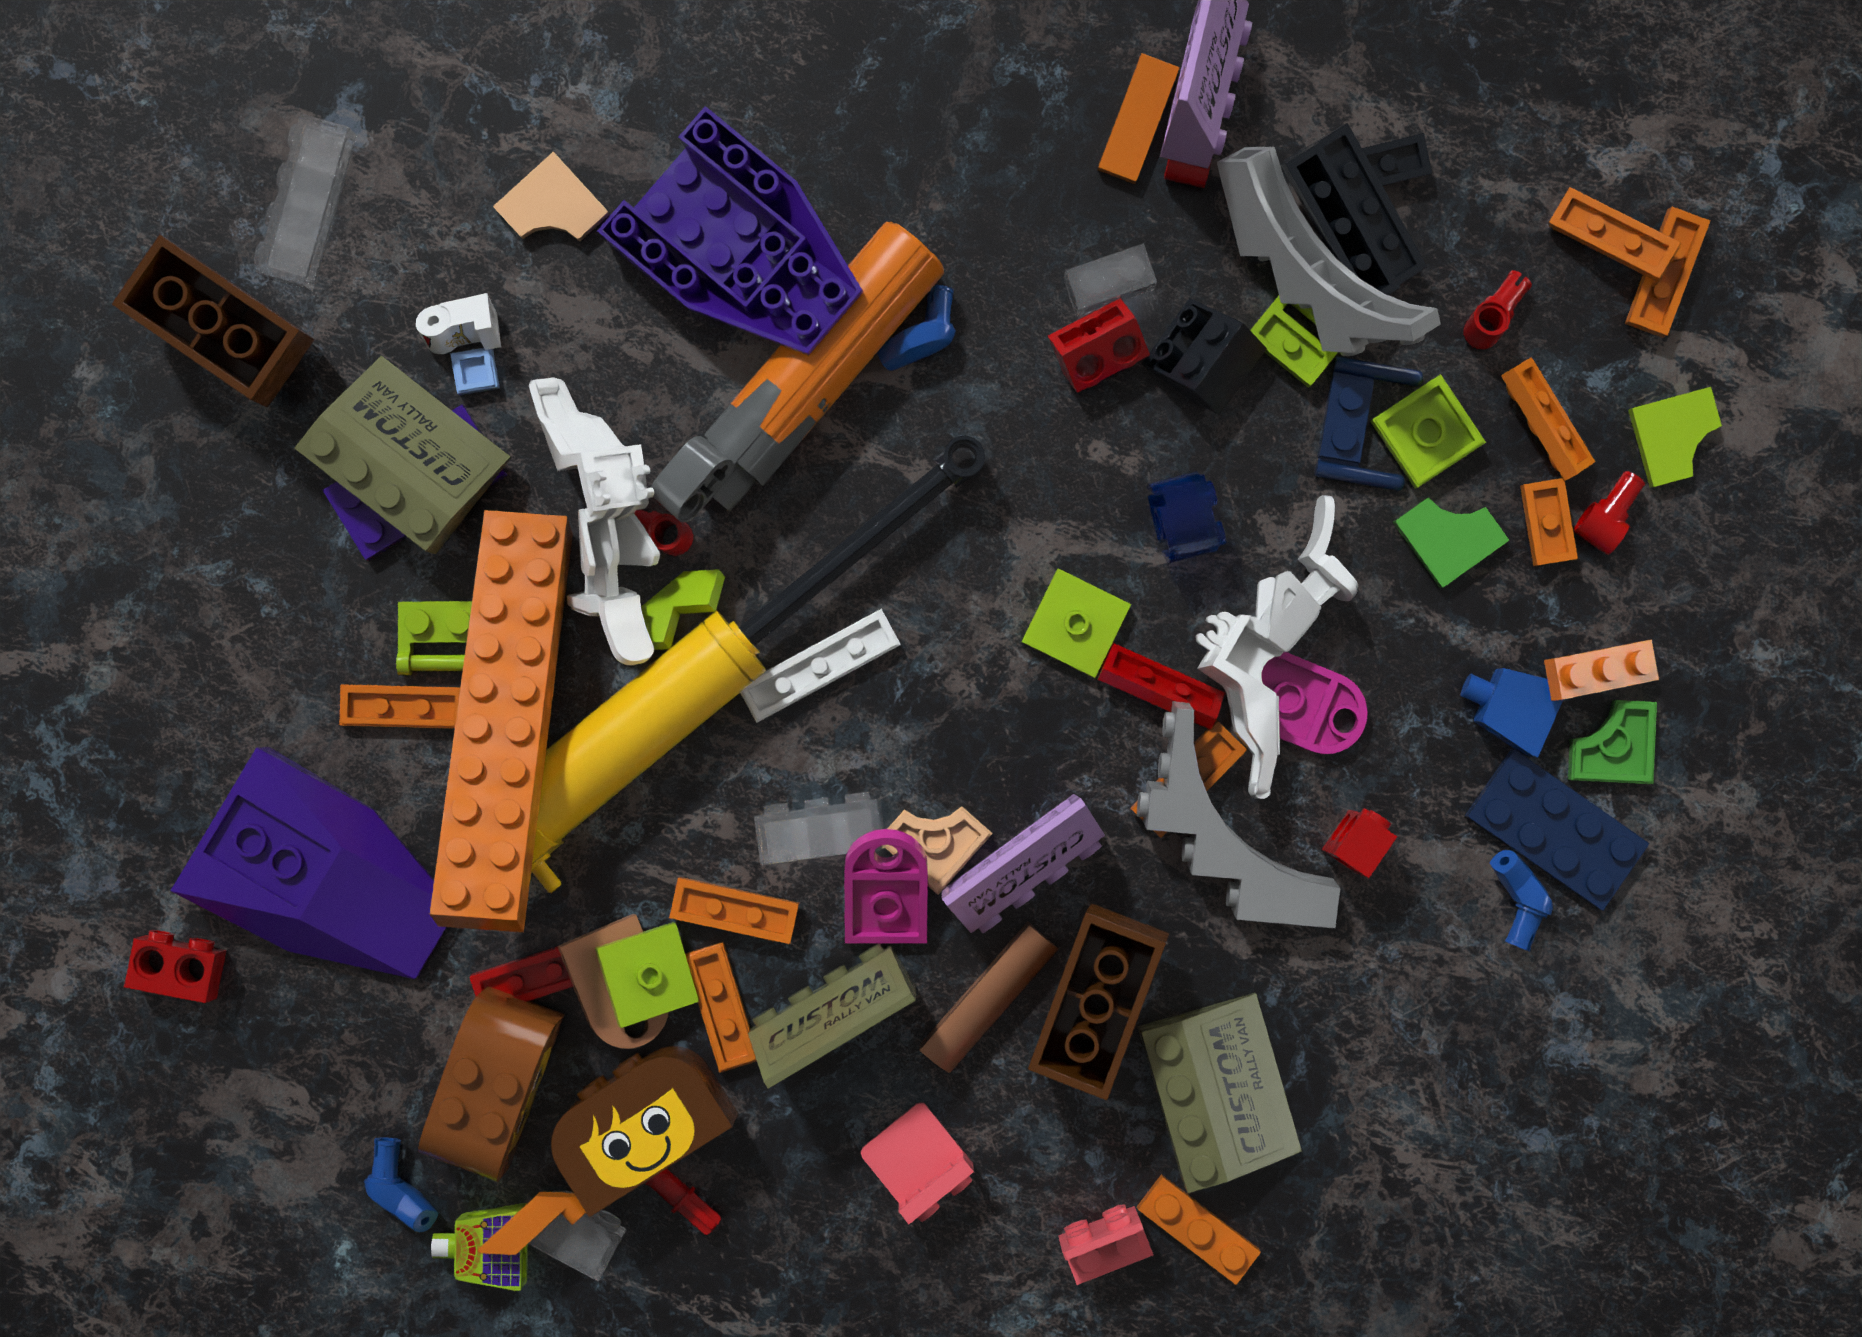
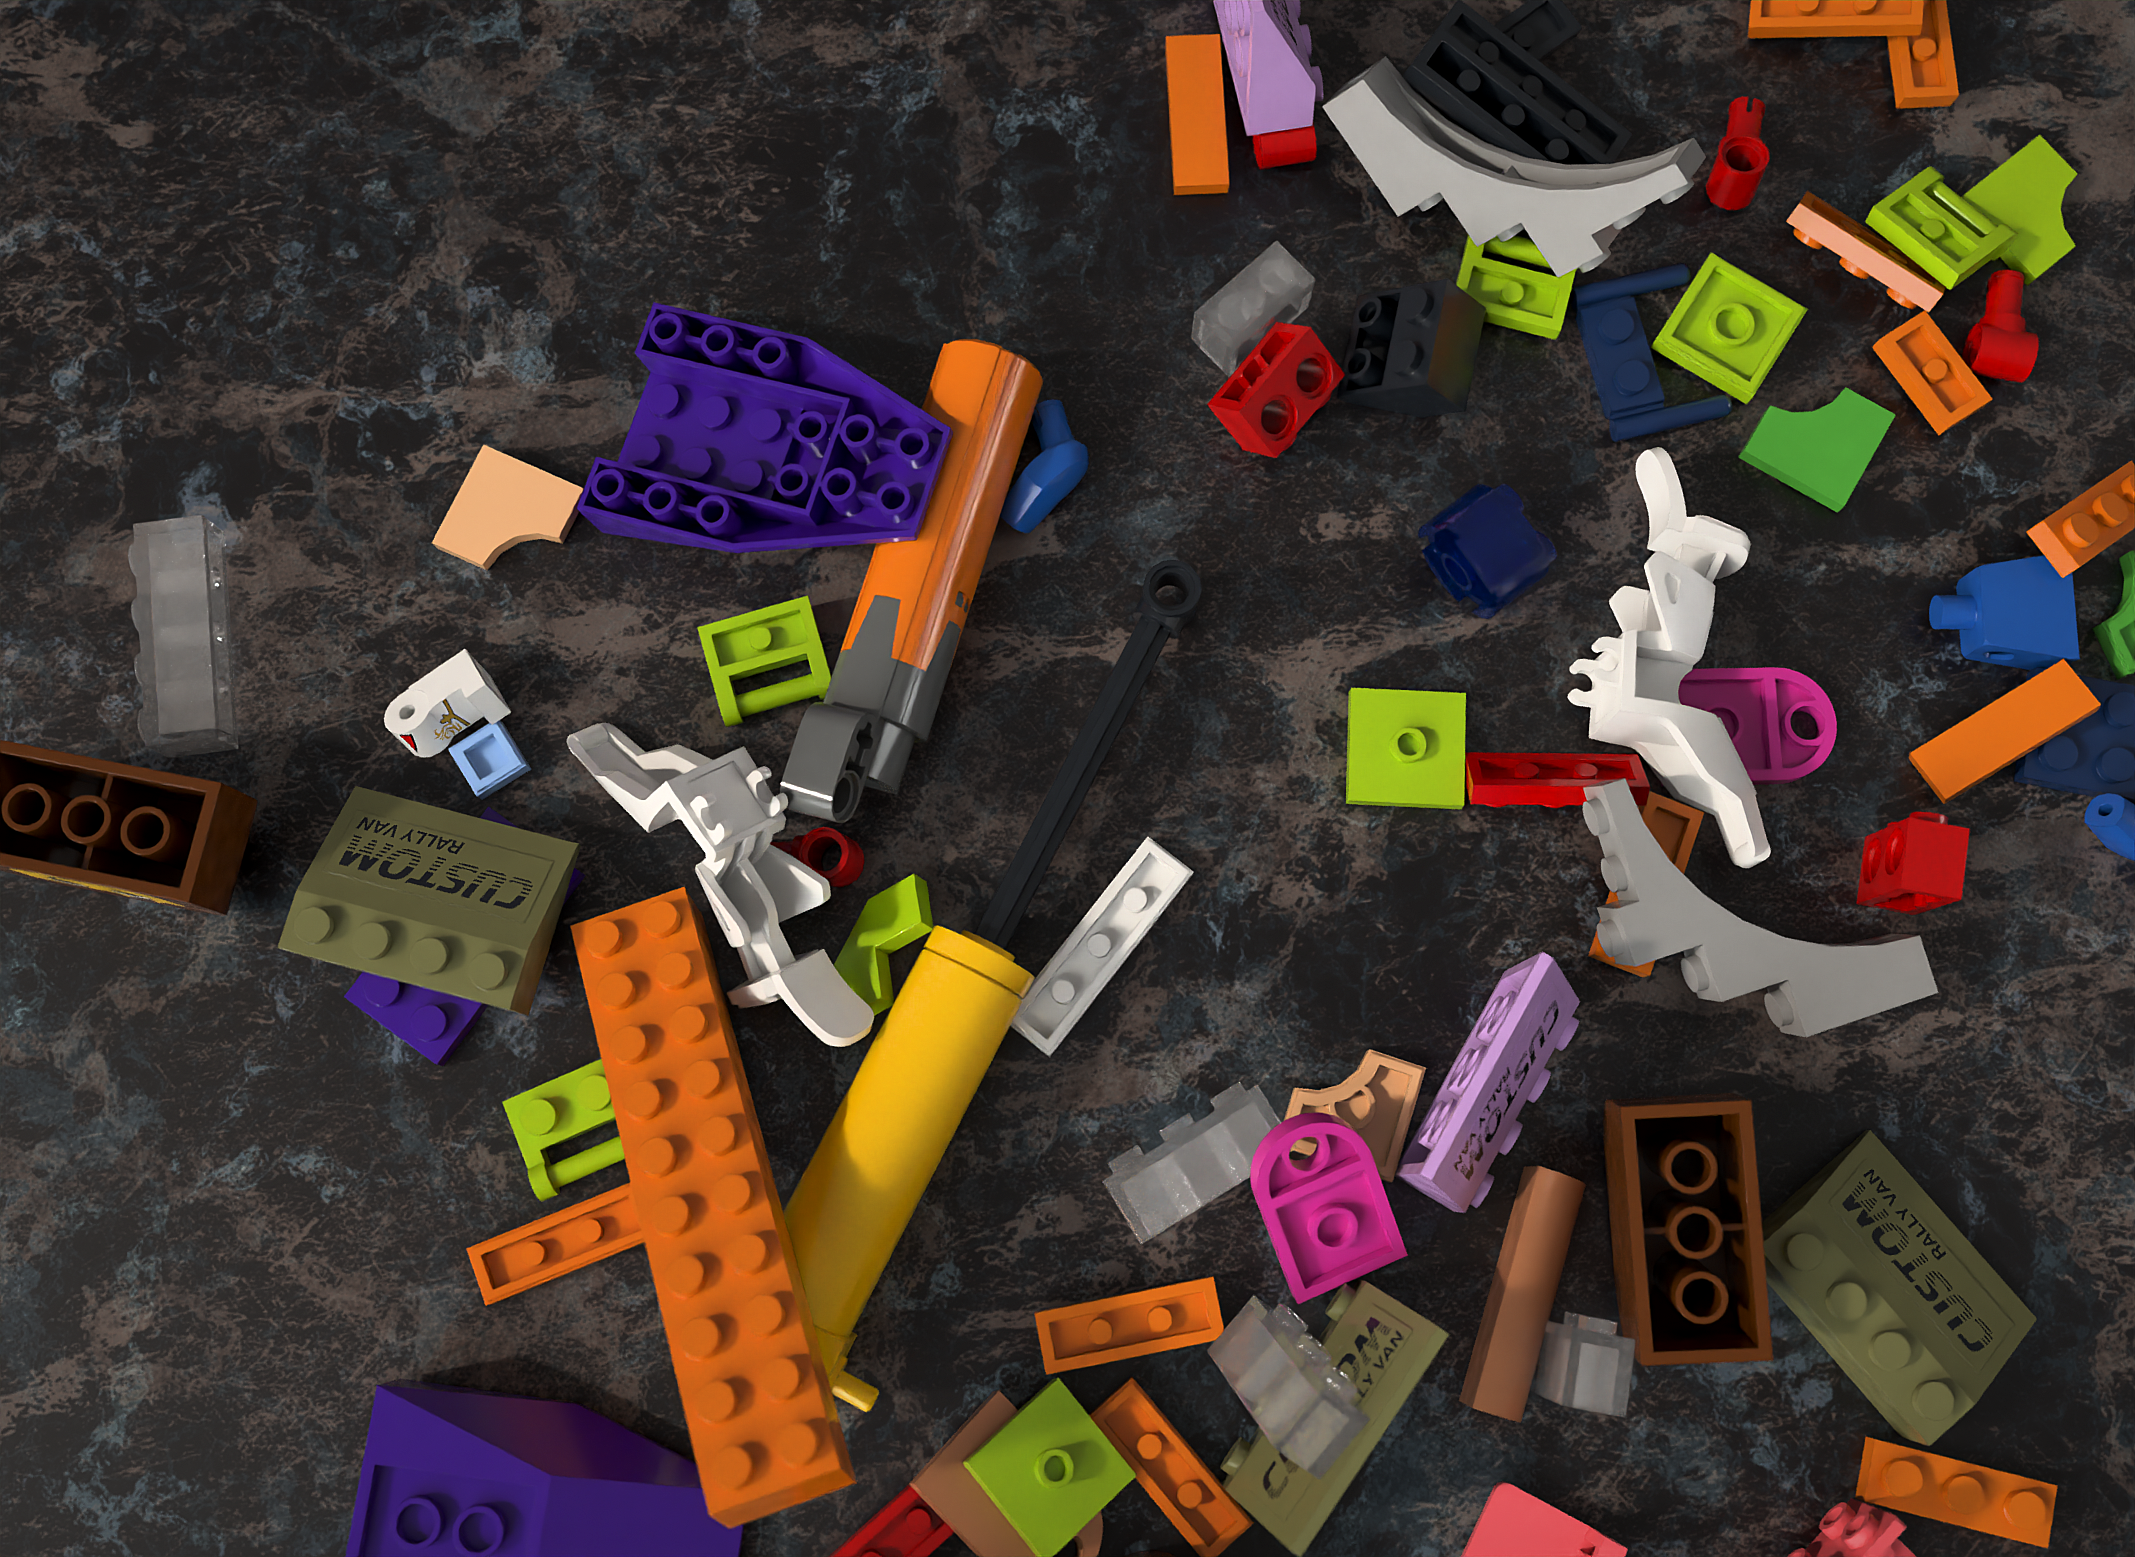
camera: 25 degrees left, 10 degrees down
(682, 370) = (760, 644): none -> lime plate
(810, 987) = (1289, 1385): none -> clear brick
(1001, 1055) = (1586, 1365): none -> clear brick
(1468, 782) = (2004, 731): none -> orange tile
(1594, 427) = (1939, 228): none -> lime plate

